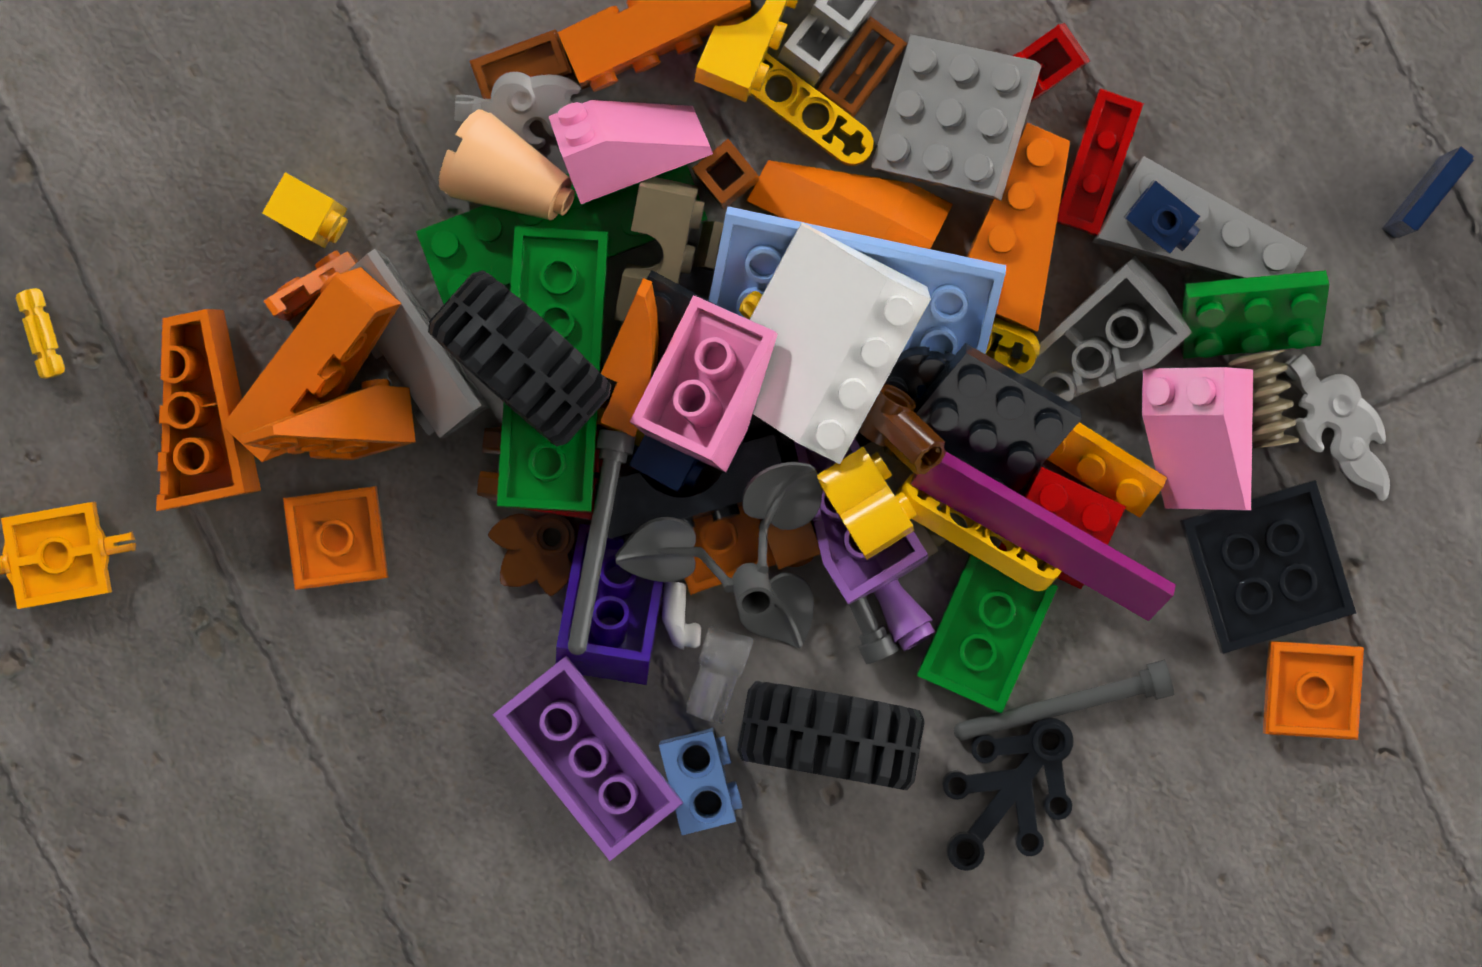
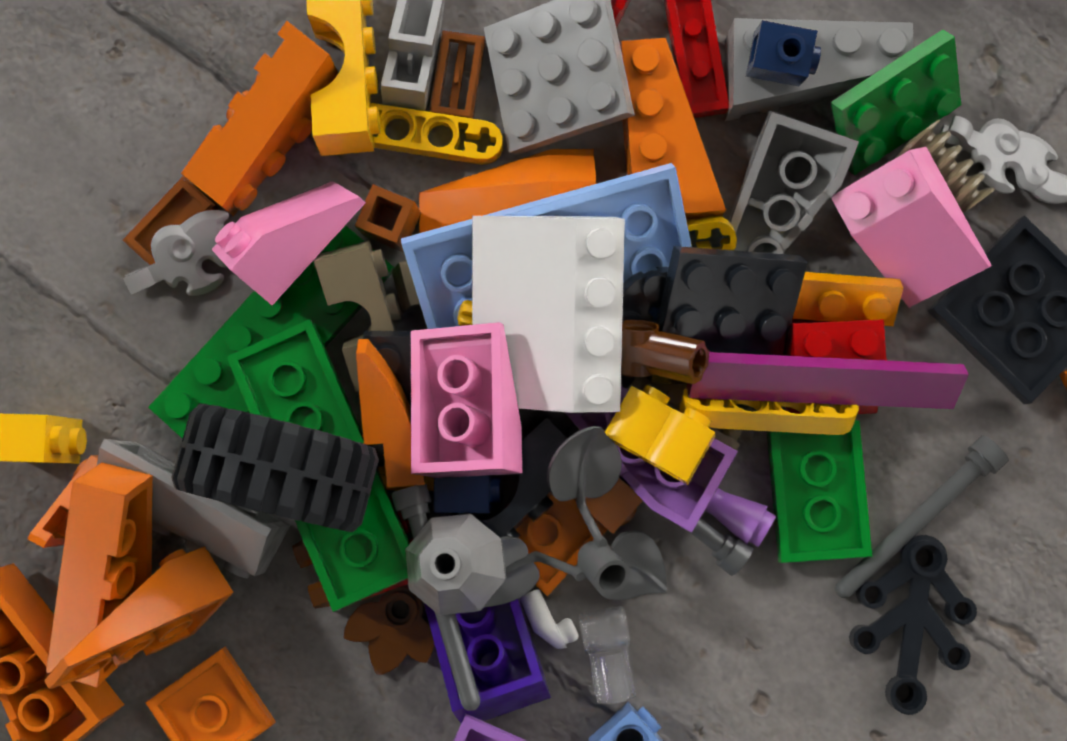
camera: 30 degrees left, 5 degrees down
(503, 171) = (190, 314): light nougat cone -> none
(629, 543) = (477, 568): none -> light grey cone
(831, 735) = (744, 663): black tyre -> none

